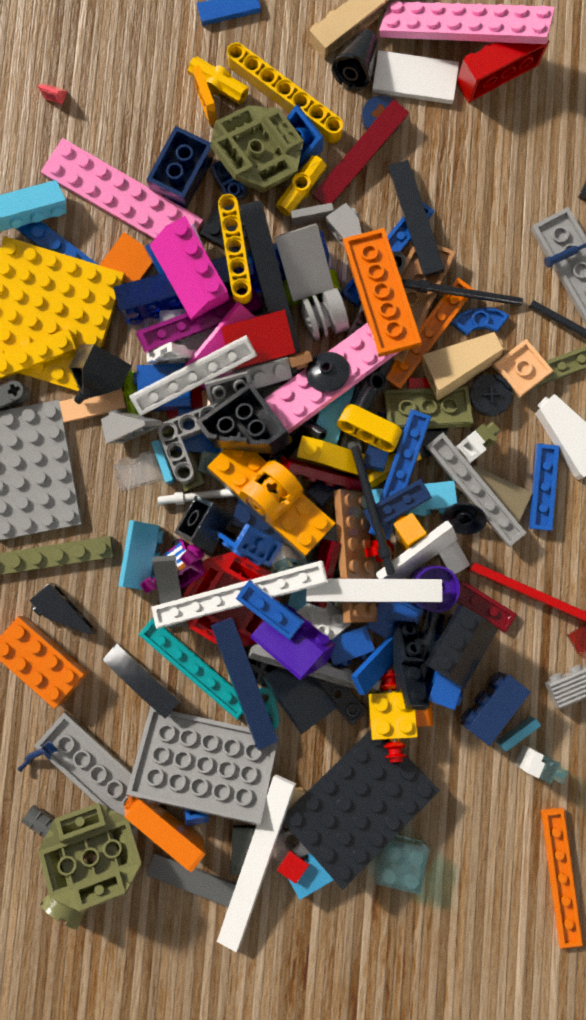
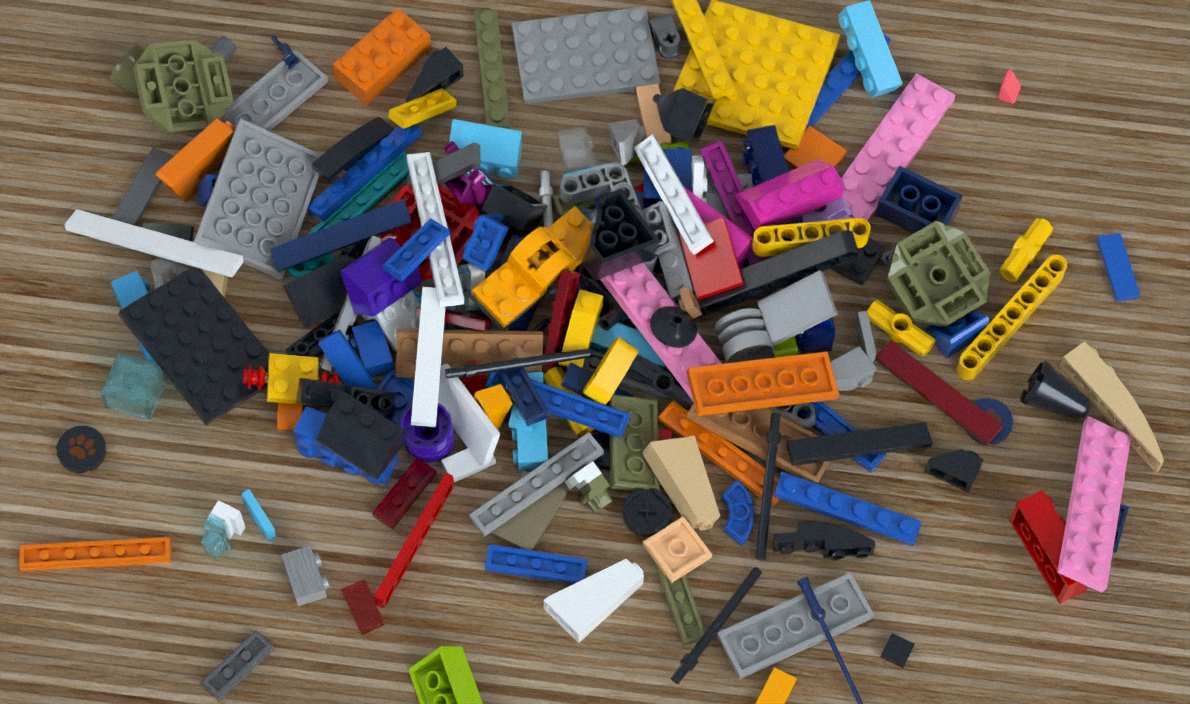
camera: 90 degrees right, 20 degrees down
(97, 618) = (422, 108): none -> yellow plate
(163, 667) = (363, 171): none -> blue plate
(204, 95) = (1001, 230): light orange tile -> none
(293, 866) = (146, 274): red tile -> none
(415, 77) = (1037, 457): white tile -> none
(429, 138) = (956, 468): none -> black slope
(462, 903) = (81, 449): none -> black tile
(465, 518) = (504, 471): black dish -> none
(473, 230) = (847, 508): none -> blue plate
(494, 707) = (290, 484): dark blue brick -> none
(503, 245) = (834, 540): none -> black slope

